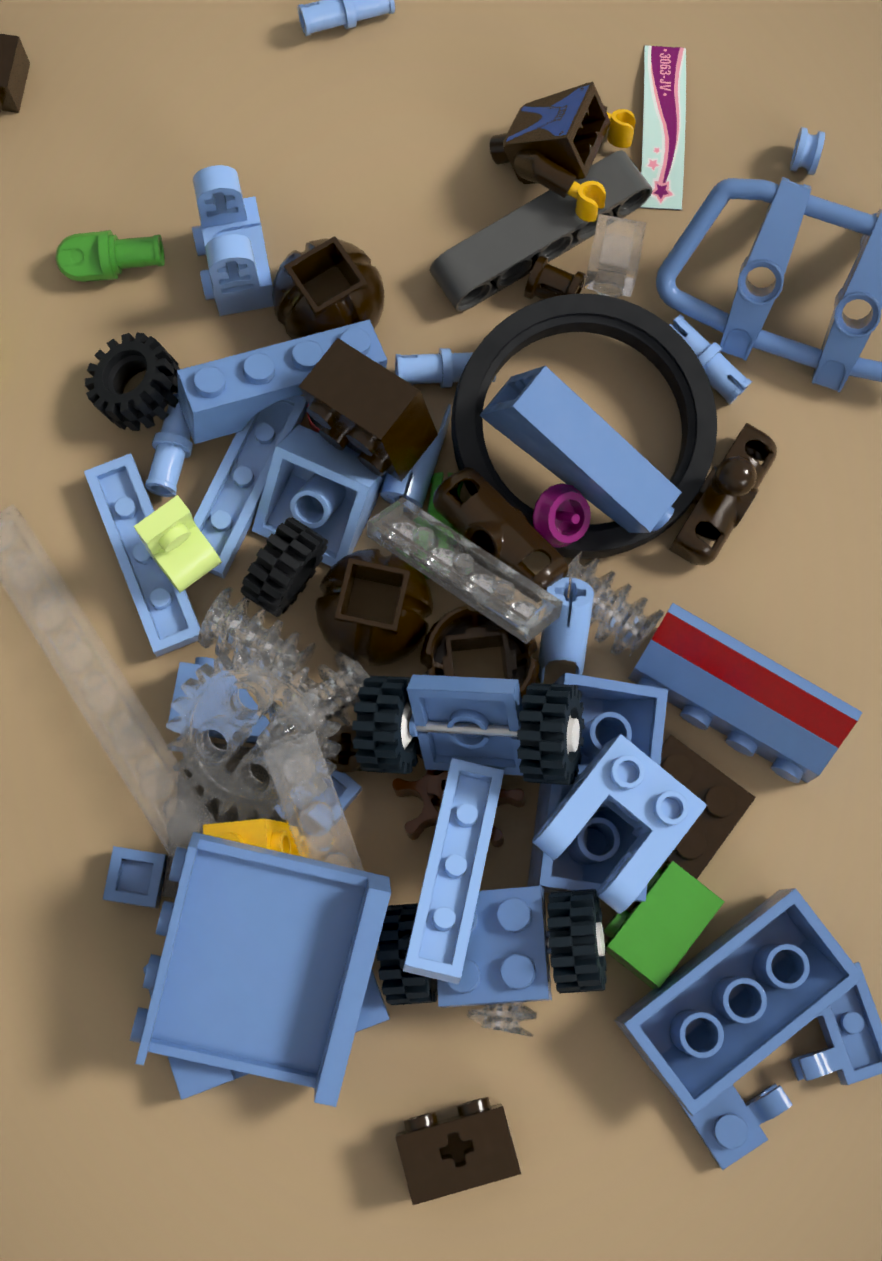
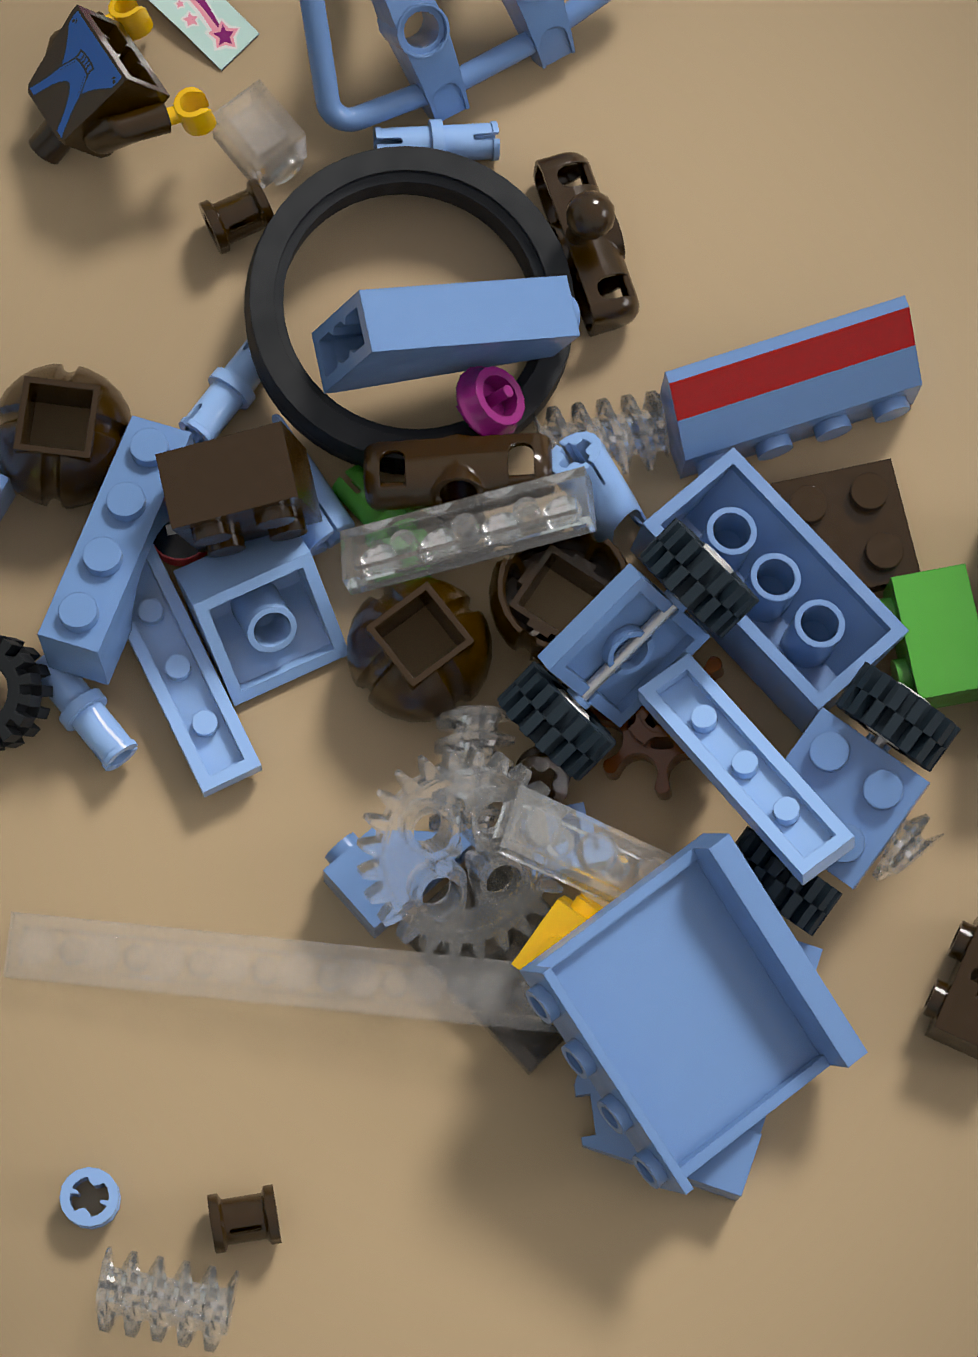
camera: 55 degrees left, 0 degrees up
(122, 504) = (173, 825): light blue plate -> none
(135, 877) = (491, 1082): medium blue plate -> none
(177, 544) = (215, 778): yellowish green plate -> none
(233, 630) = (349, 788): clear piece -> none
(284, 566) = (311, 698): black tyre -> none
(539, 228) = (169, 194): dark grey beam -> none
(643, 797) = (820, 549): light blue brick -> none

